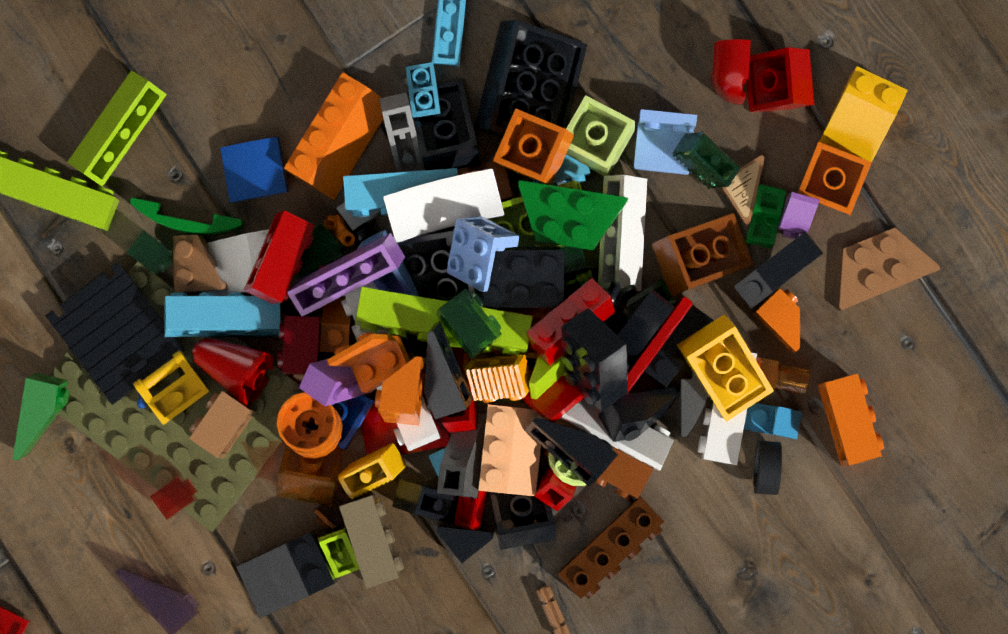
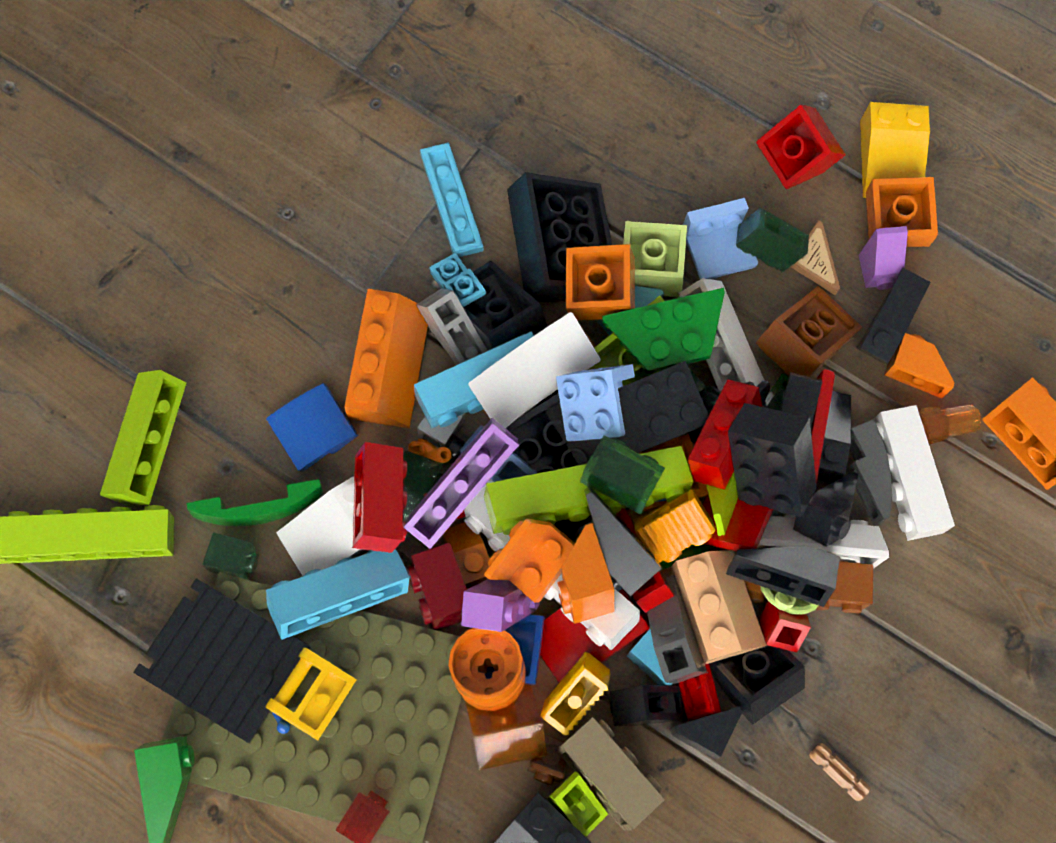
camera: 30 degrees left, 15 degrees down
(194, 265) = (285, 551): medium nougat wing -> none
(221, 424) = (387, 708): medium nougat brick -> none
(234, 367) = (375, 639): red cone -> none
(610, 548) = (867, 673): reddish brown brick -> none
(725, 367) = (895, 426): yellow slope -> none
(730, 69) = (753, 146): red brick -> none
(765, 216) = (851, 272): green slope -> none
(767, 467) = (986, 516): black tyre -> none
(773, 420) = (963, 469): dark azure slope -> none
(880, 266) = (981, 282): medium nougat wing -> none

